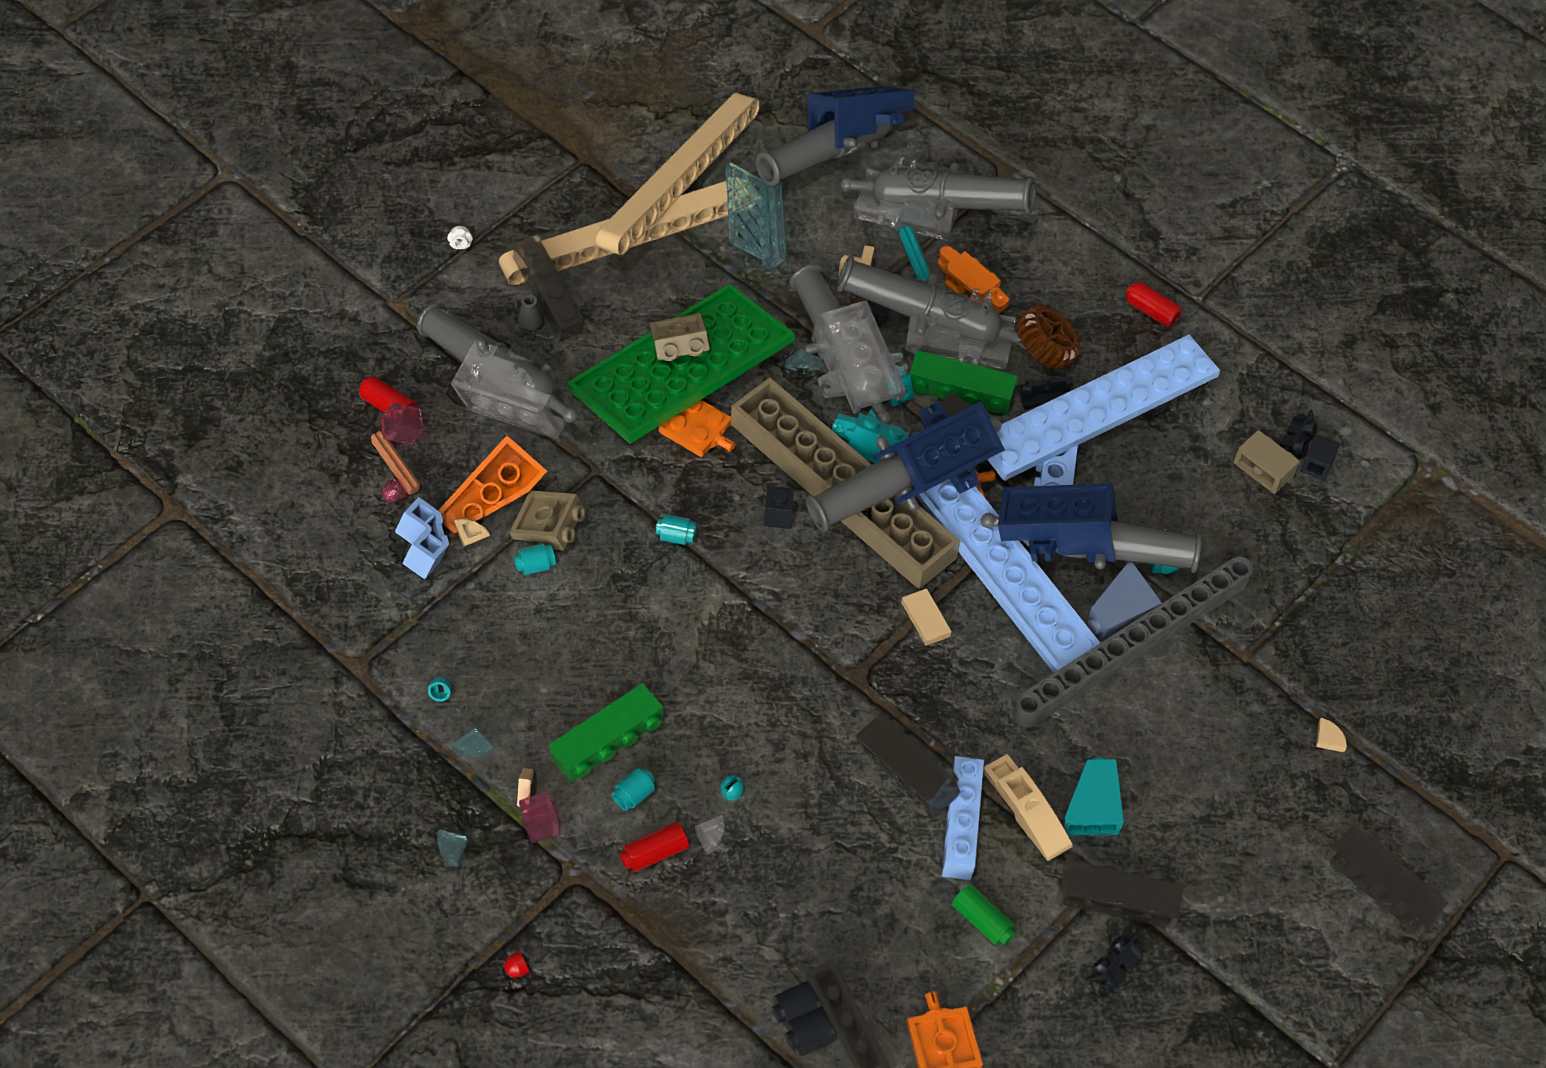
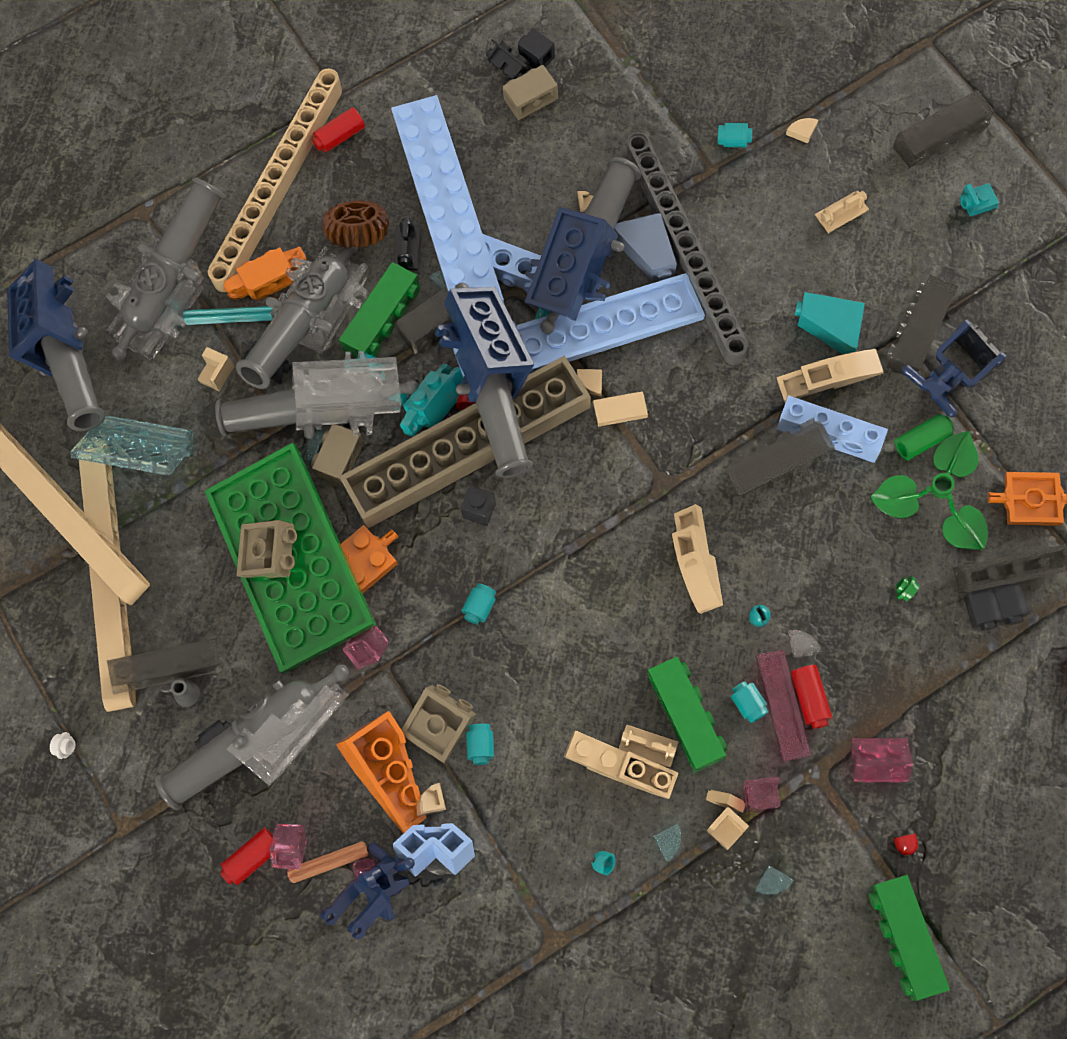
camera: 65 degrees left, 15 degrees up
(367, 489) = (378, 885): none -> dark blue piece
(416, 979) = (909, 938): none -> green brick
(498, 790) = (727, 828): none -> tan panel
(540, 681) = (621, 765): none -> tan slope
(567, 705) = (648, 745): none -> tan hinge
(601, 926) = (881, 760): none -> clear pink bracket
(609, 446) = (366, 647): none -> clear pink panel
(637, 822) = (783, 706): none -> clear pink plate
(767, 711) = (695, 562): none -> tan slope
(799, 923) = (906, 588): none -> green plate
(800, 379) = (337, 454): none -> dark tan brick
(910, 903) = (956, 456): none -> green plant
(949, 584) = (591, 380): none -> tan tile
(1068, 924) = (947, 375): none -> dark blue piece
(1084, 265) = (314, 108): none -> tan beam
(1237, 792) = (843, 211): none -> tan hinge
(1291, 664) = (734, 135): none -> teal brick
(1309, 935) = (978, 199): none -> teal bracket

